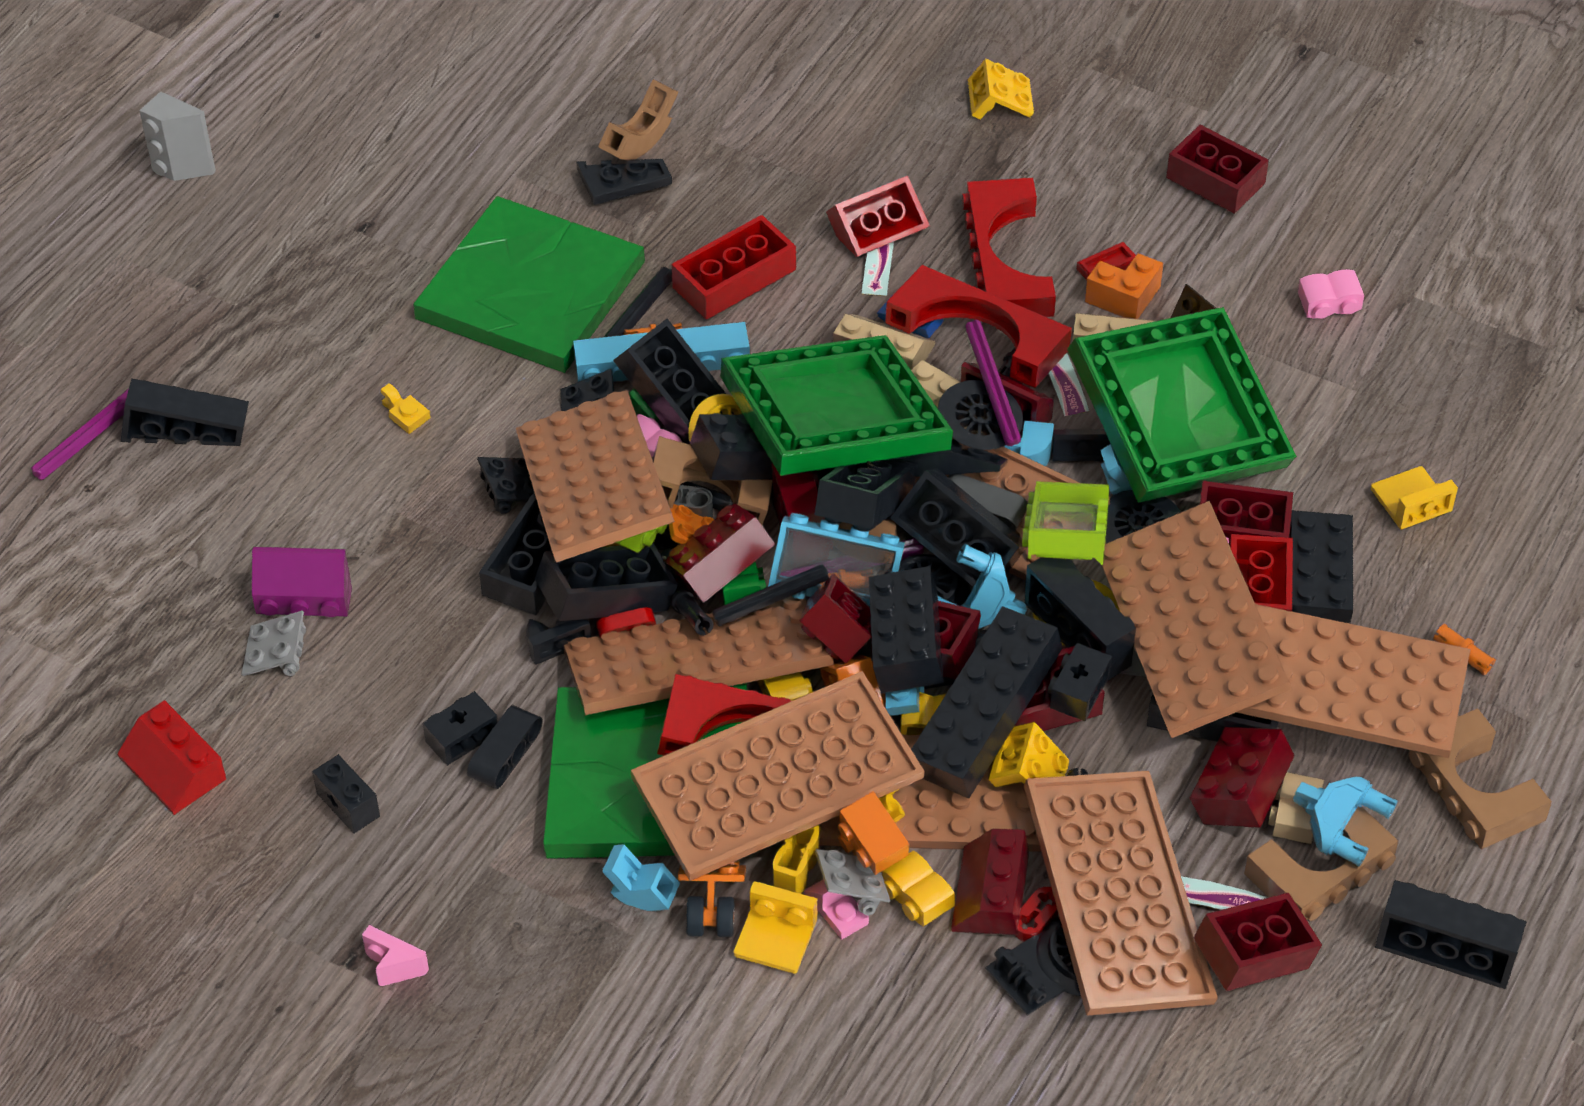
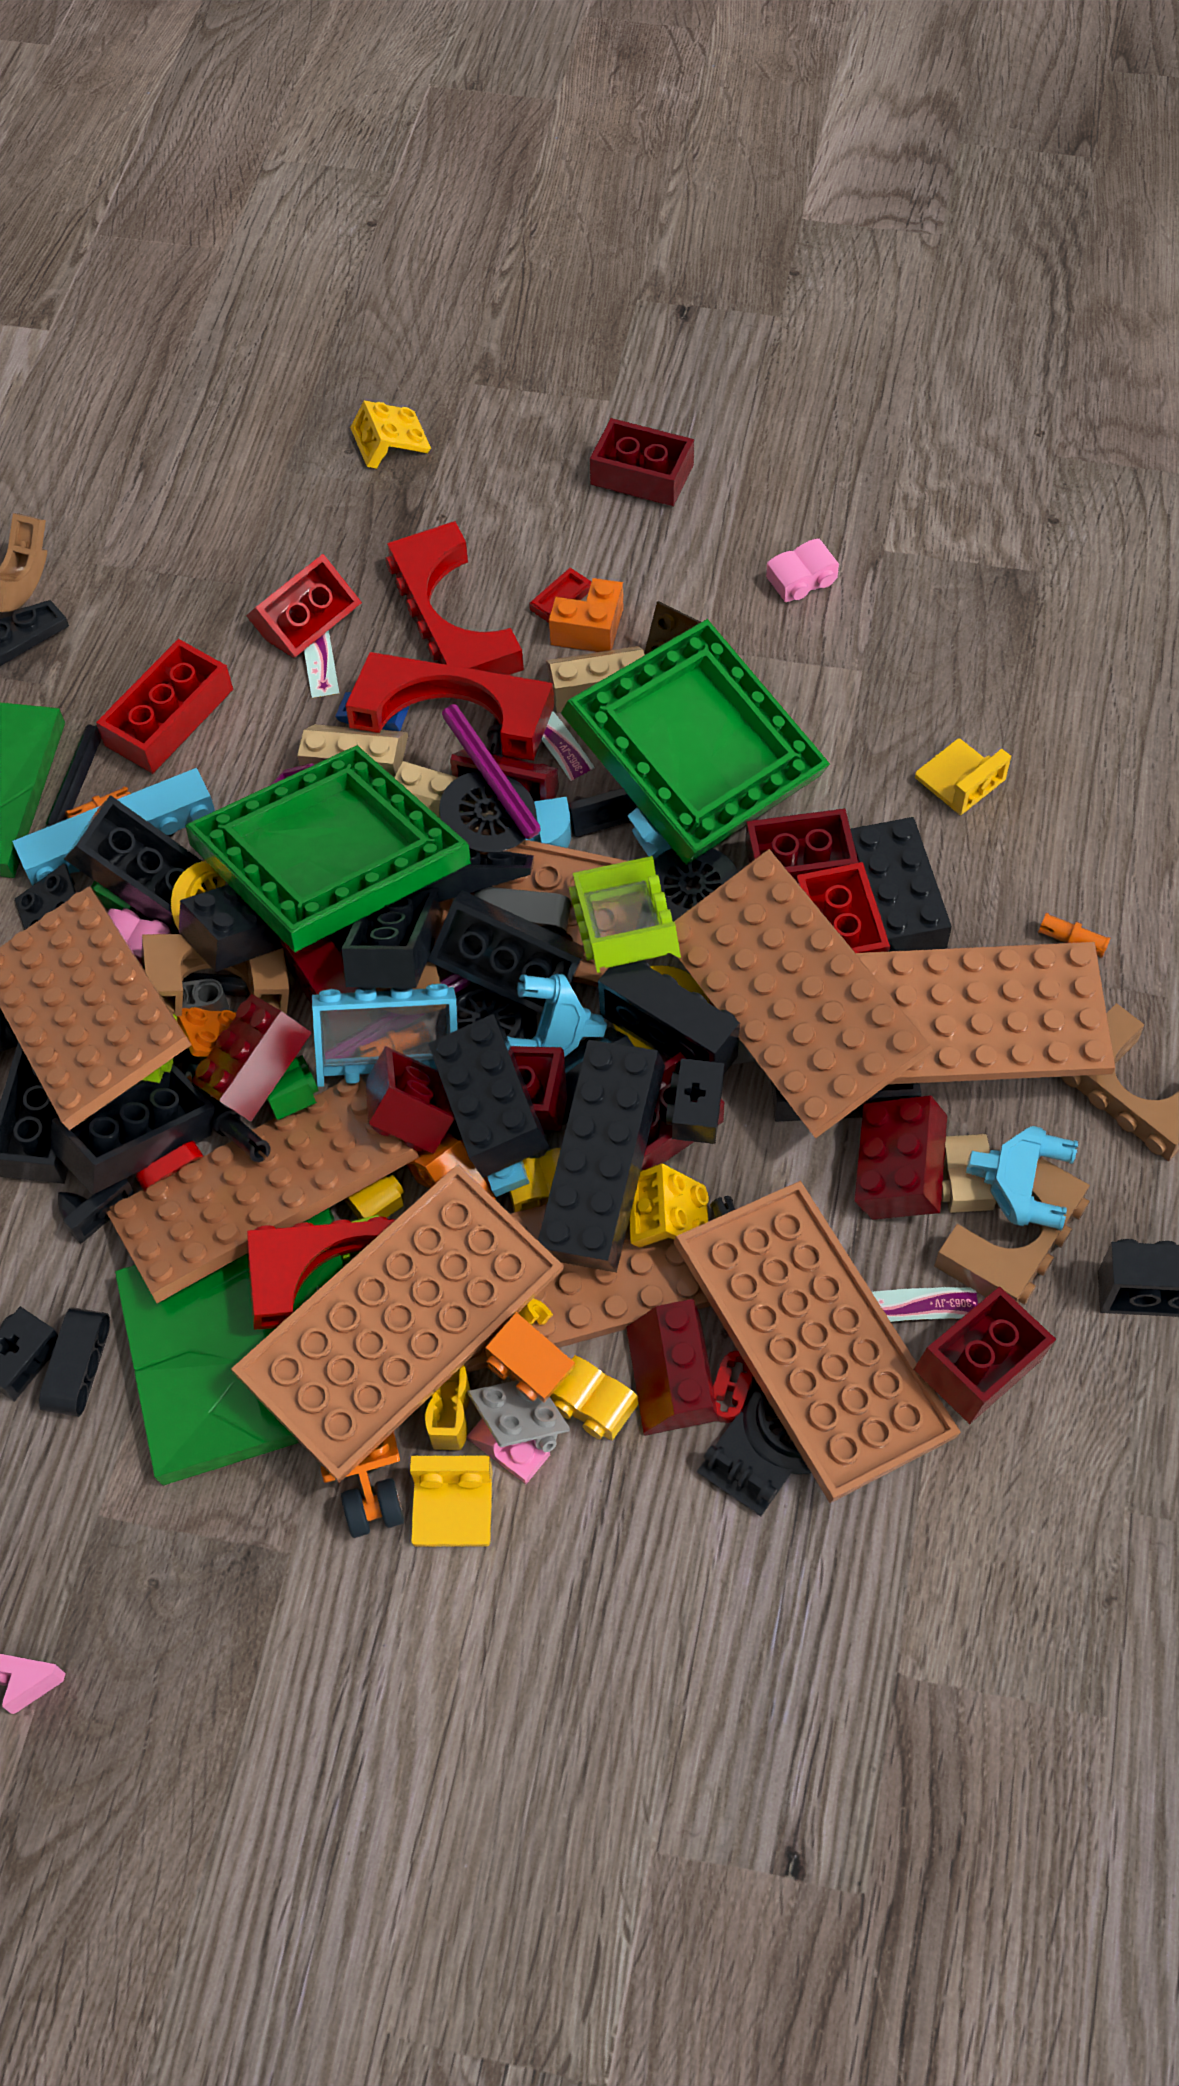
camera: 15 degrees left, 10 degrees up
(639, 885) = (279, 1491): medium azure brick -> none
(770, 595) = (323, 1091): black axle -> none

